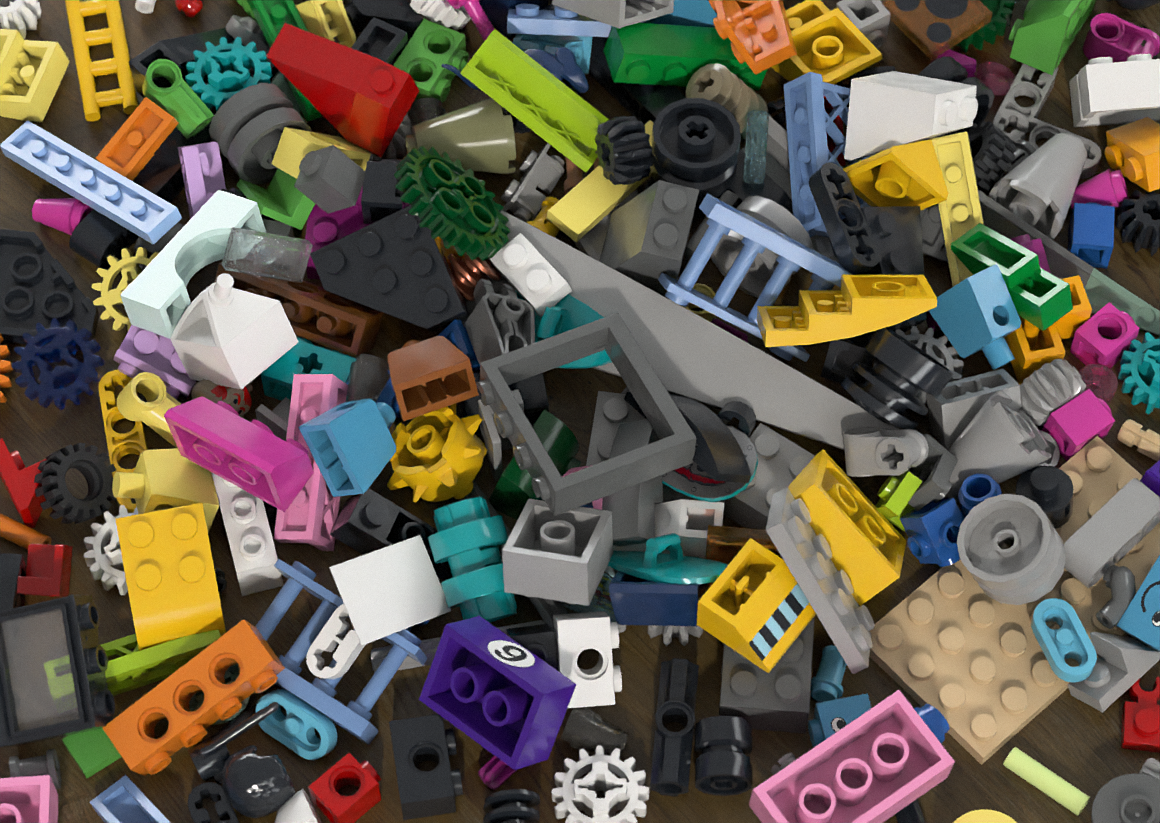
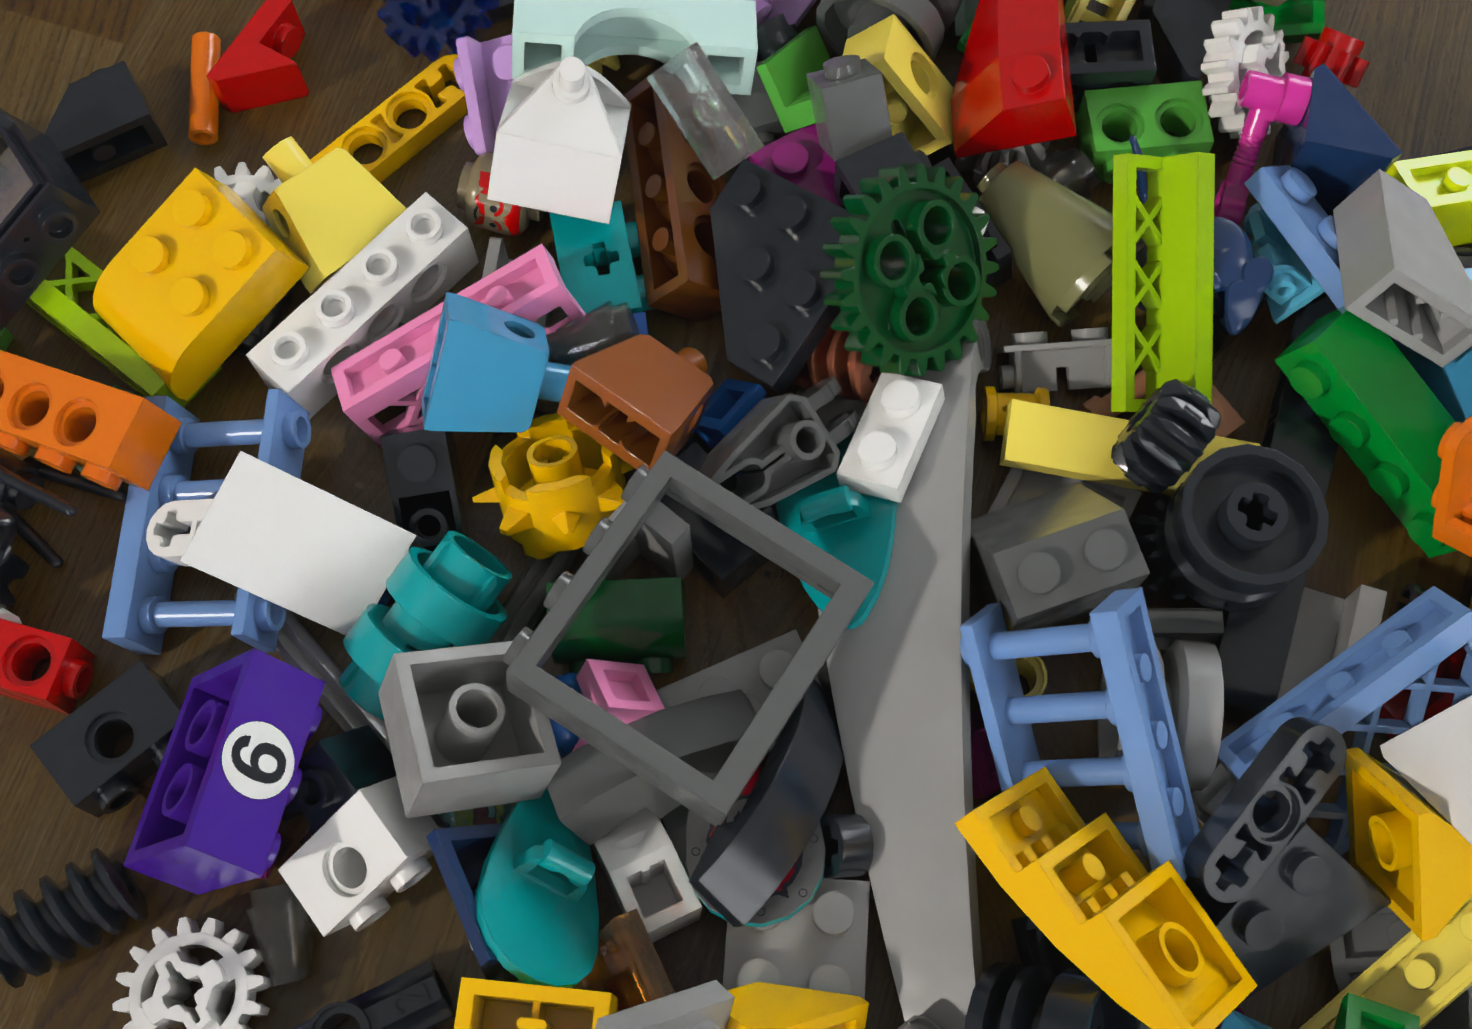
camera: 60 degrees right, 10 degrees up
(46, 571) = (155, 165): red panel -> none
(56, 491) = (280, 74): black tyre -> none
(154, 409) = (434, 144): light yellow piece -> none
(240, 450) = (380, 244): dark pink slope -> none
(299, 725) = (97, 553): medium azure plate -> none
(724, 87) = (1367, 523): dark tan piece -> none
(756, 147) = (1317, 608): clear light blue axle -> none

